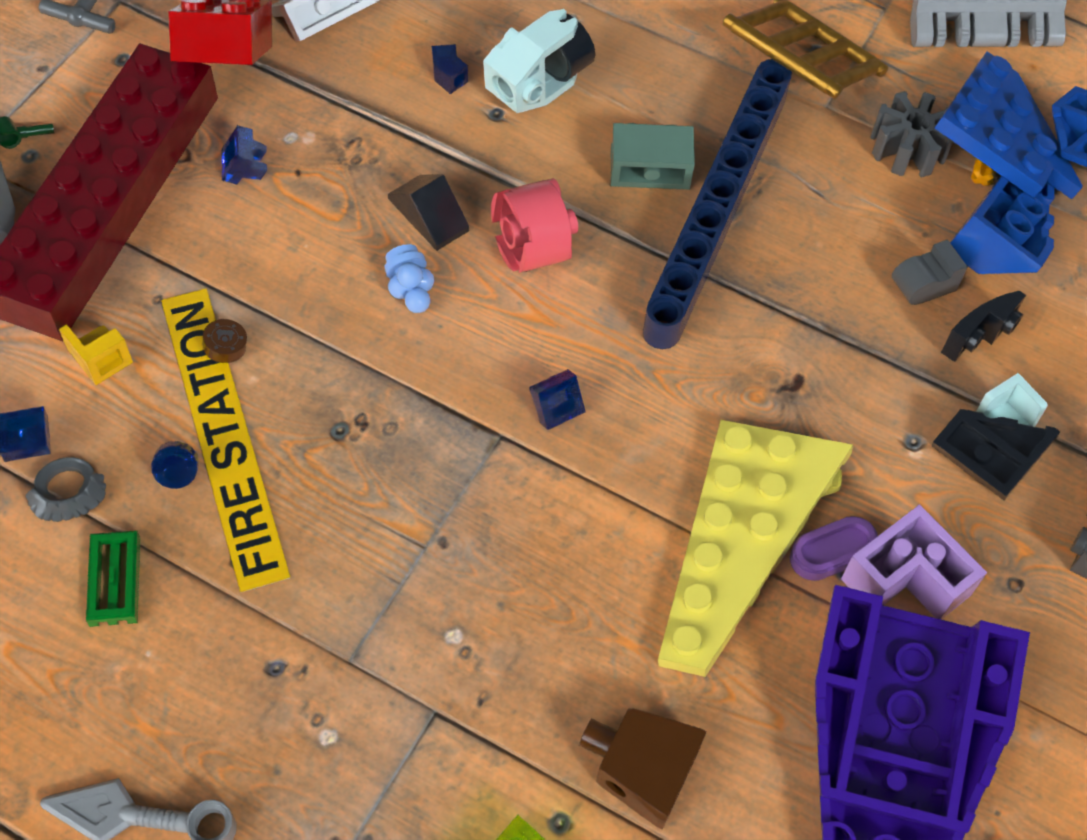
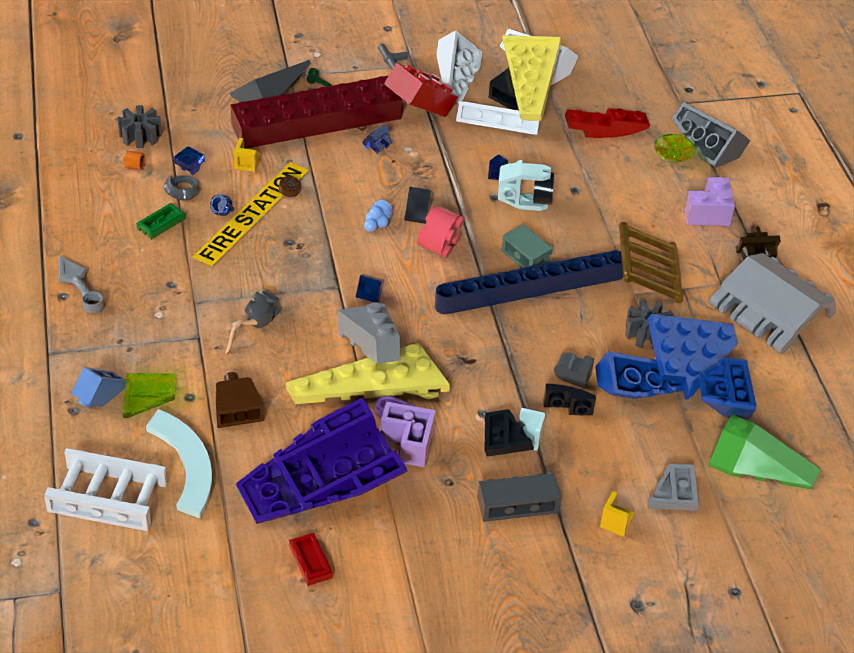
camera: 50 degrees right, 15 degrees down
(475, 586) = (259, 312): none -> dark grey animal
(674, 462) = (372, 331): none -> light grey wedge

